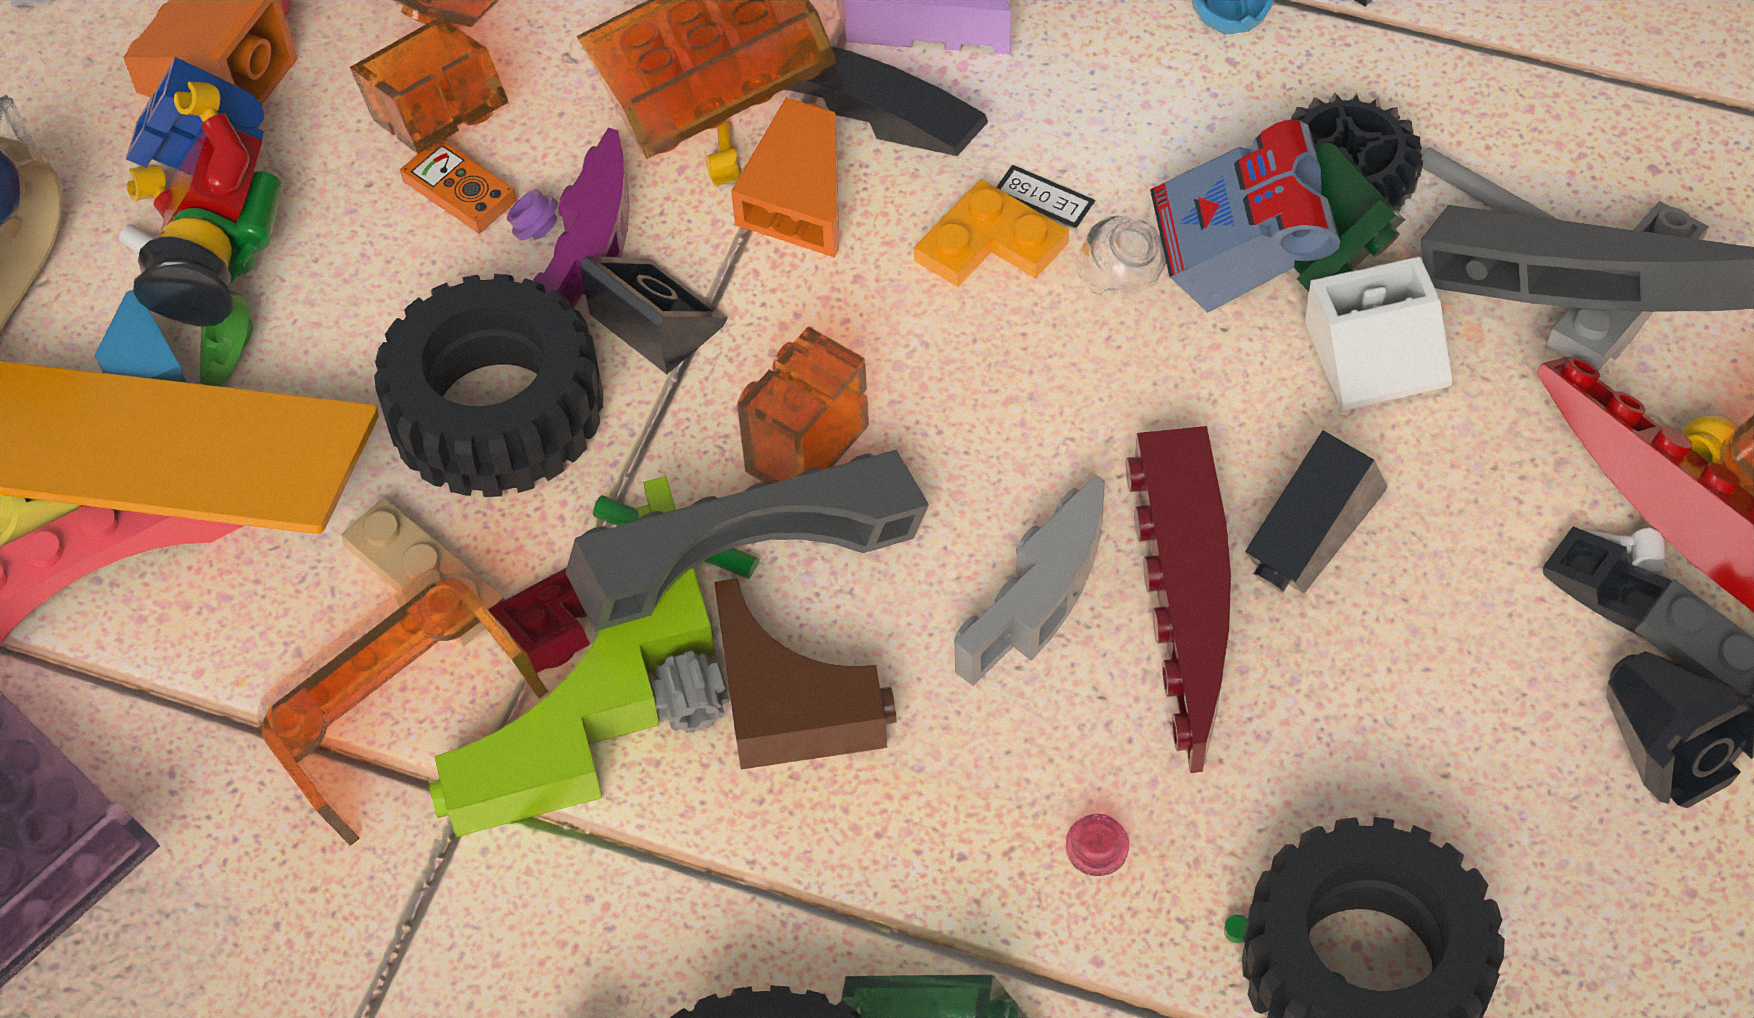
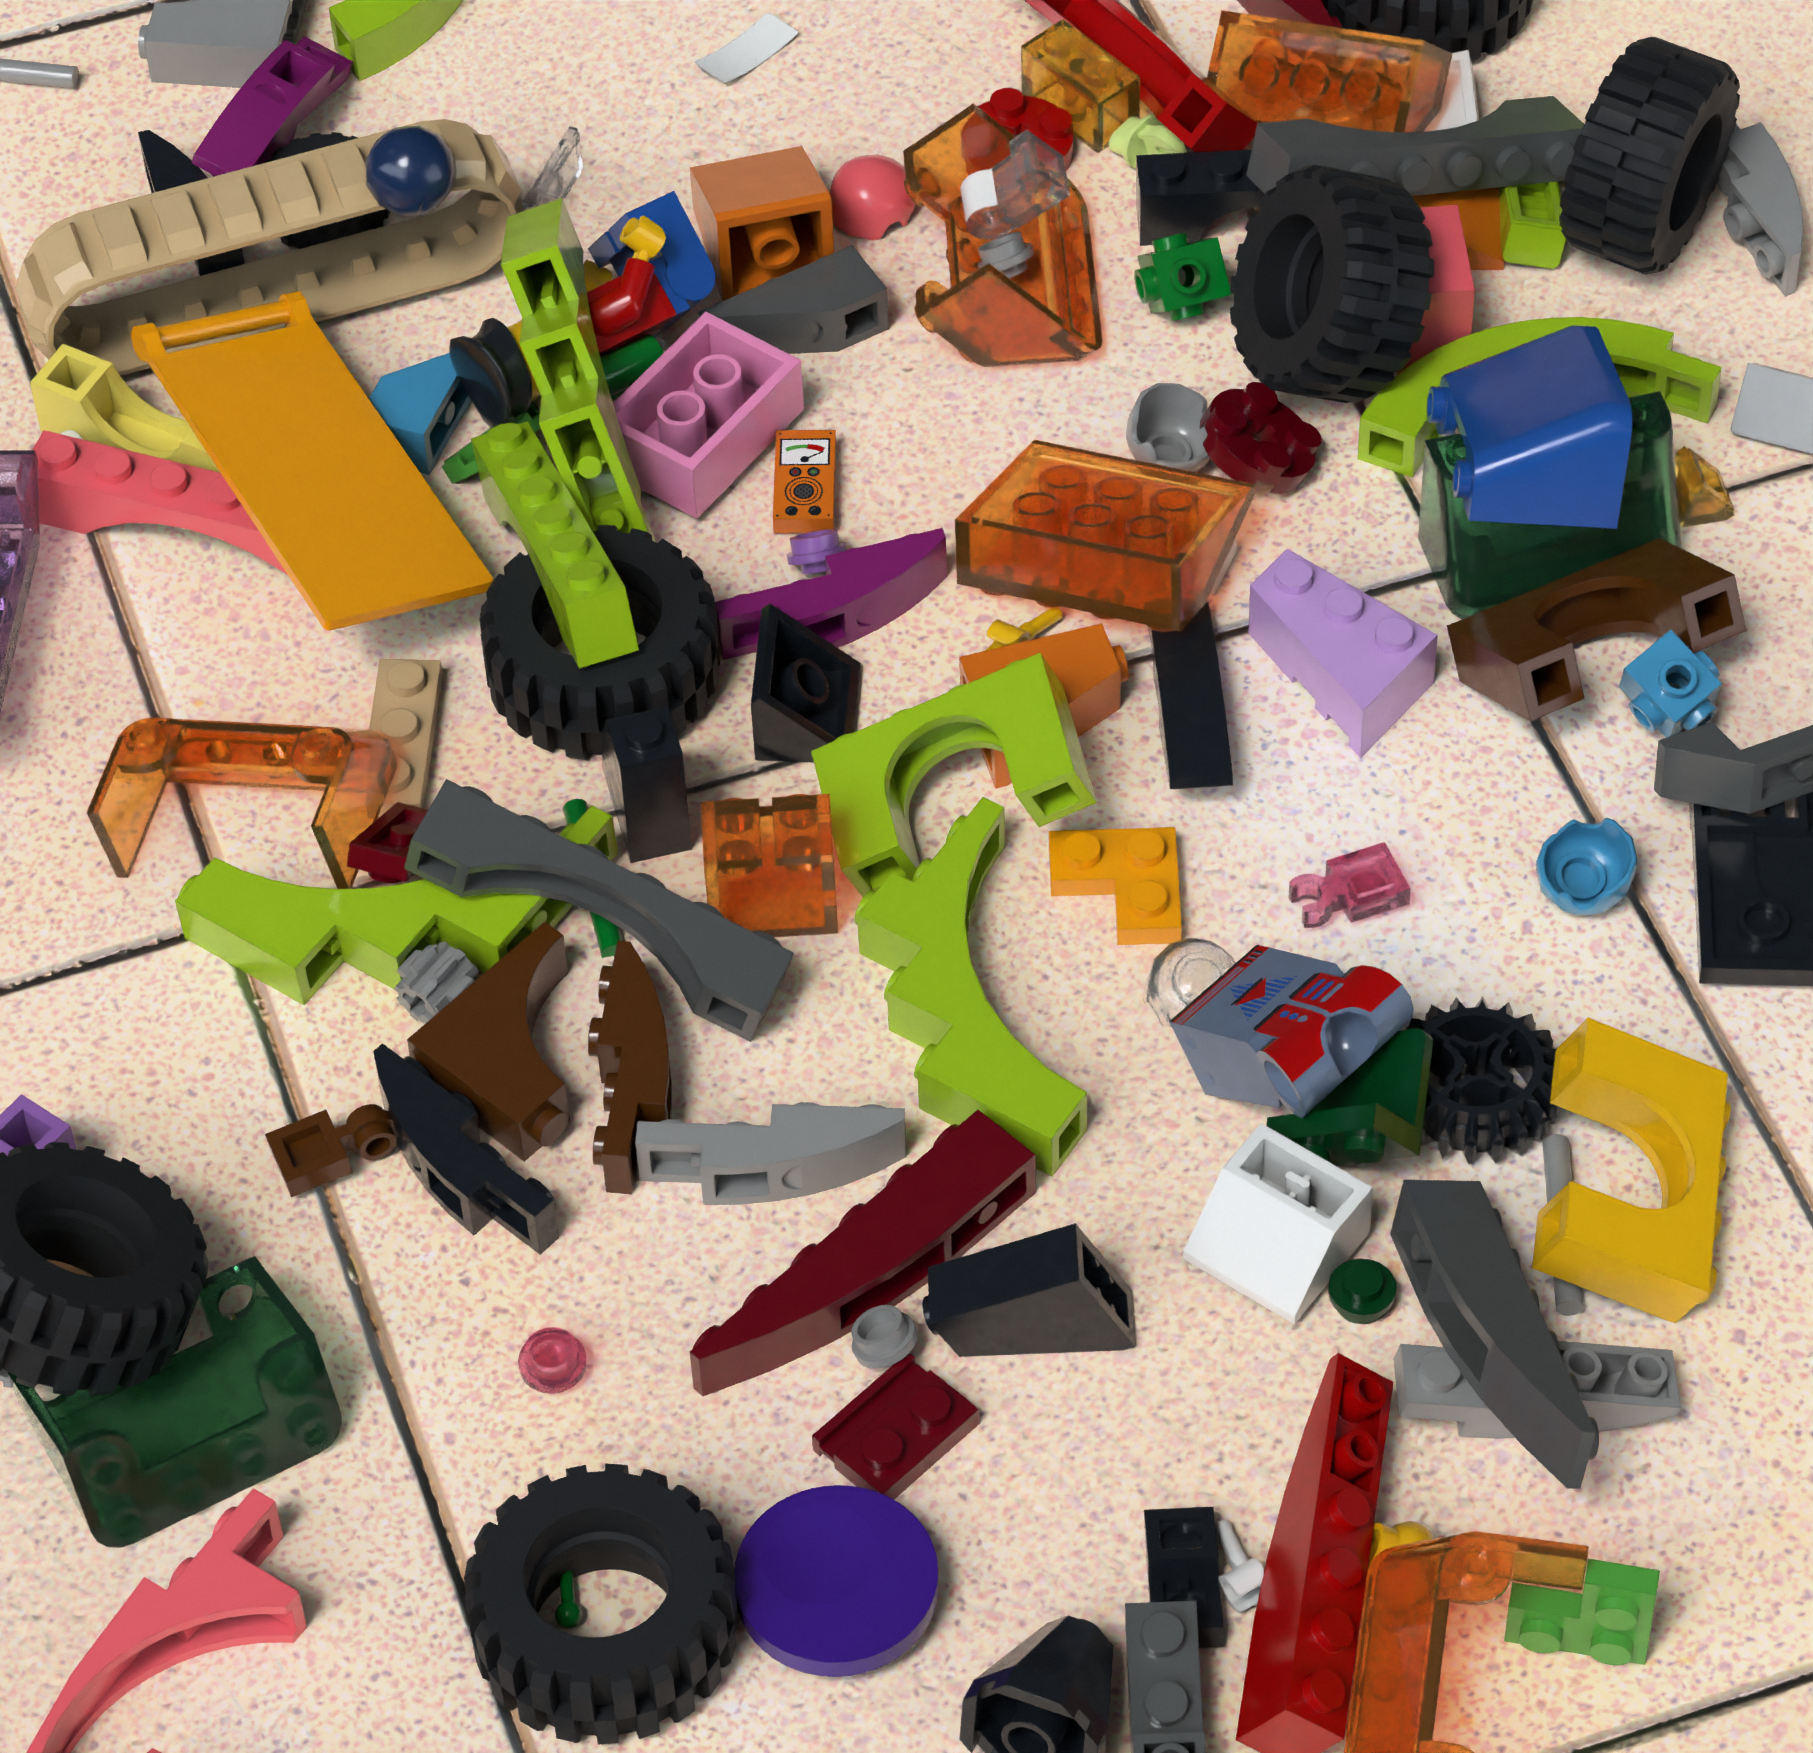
camera: 50 degrees right, 5 degrees down
(247, 217) = (560, 346): none -> lime arch
(312, 85) = (813, 307): none -> dark grey slope
(347, 196) = (707, 412): none -> bright pink brick
(430, 85) = (862, 379): clear orange piece -> none
(475, 346) = (570, 562): none -> lime arch
(650, 435) = (647, 783): none -> black slope
(764, 875) = (315, 1151): none -> reddish brown plate
(828, 789) = (445, 1152): none -> black slope
(835, 182) = (879, 767): none -> lime arch
(873, 604) = (631, 1064): none -> reddish brown slope
(1003, 399) = (939, 1004): none -> lime arch
(1046, 196) = (1216, 890): sticker -> none
(1125, 117) = (1357, 882): none -> clear pink plate
(1264, 623) = (883, 1336): none -> light grey plate
(1343, 670) = (896, 1429): none -> dark red plate
(1464, 330) = (1362, 1290): none -> dark green plate
(1467, 780) = (836, 1581): none -> dark purple piece
(1570, 152) = (1678, 1119): none -> yellow arch

